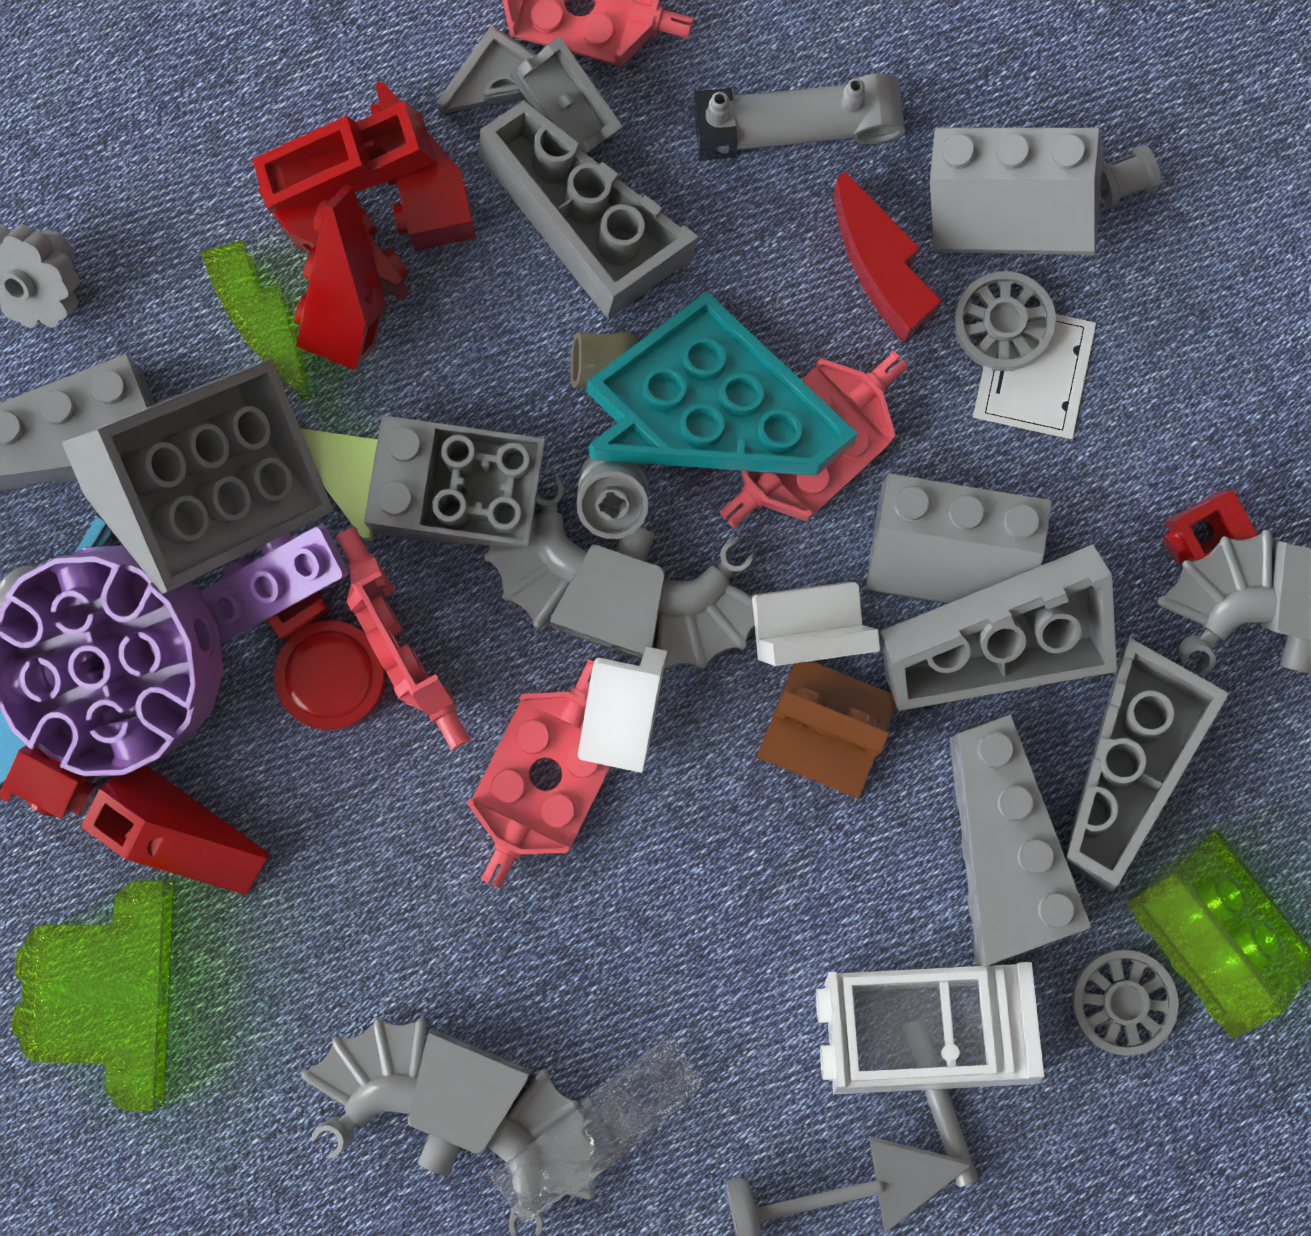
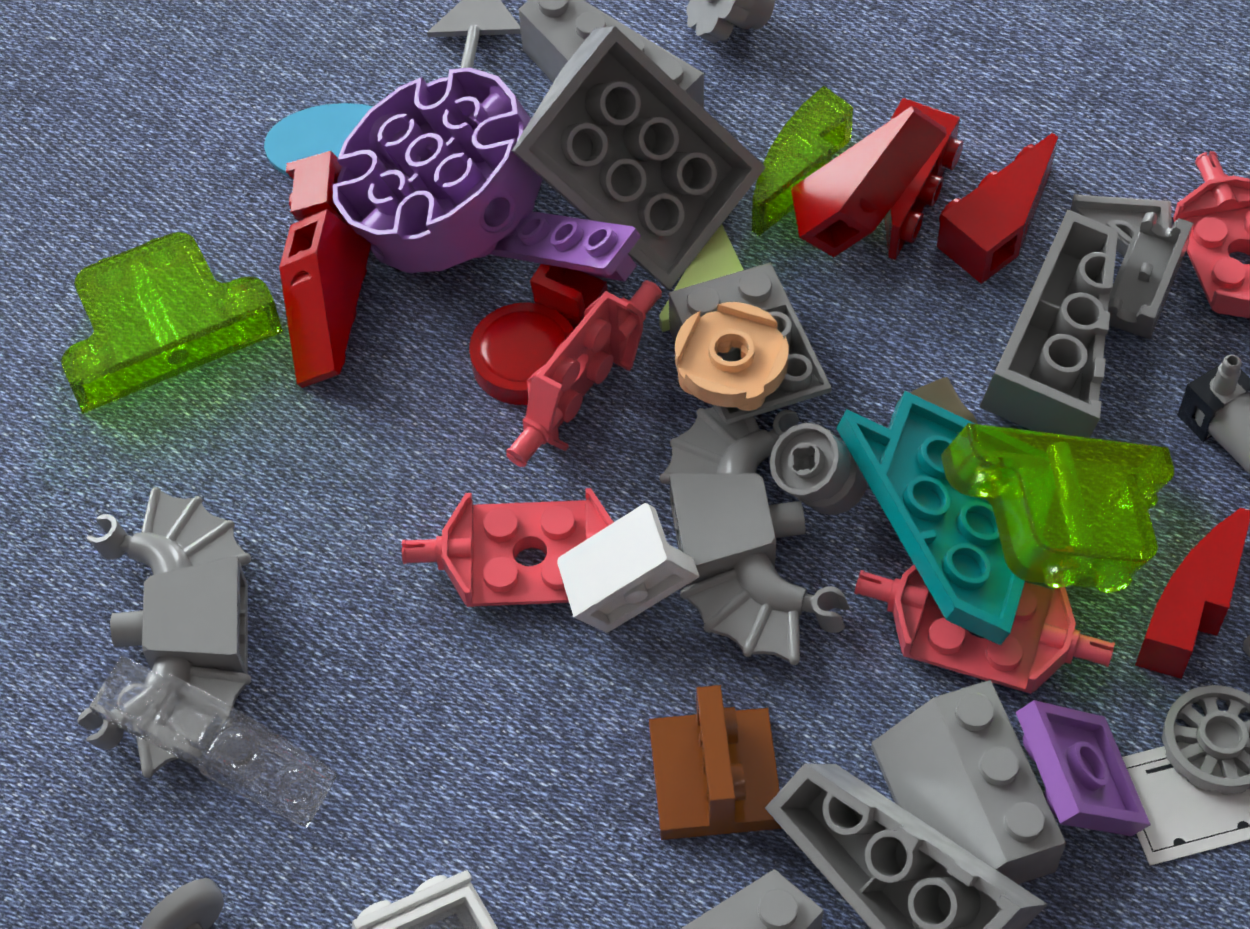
camera: 65 degrees right, 25 degrees down
(345, 153) = (979, 135): red slope -> none
(479, 477) = (738, 382): none -> light nougat plate
(766, 315) = (1064, 502): none -> clear neon green brick
(811, 624) = (806, 698): white panel -> none
(990, 447) = (1081, 769): none -> medium lavender plate

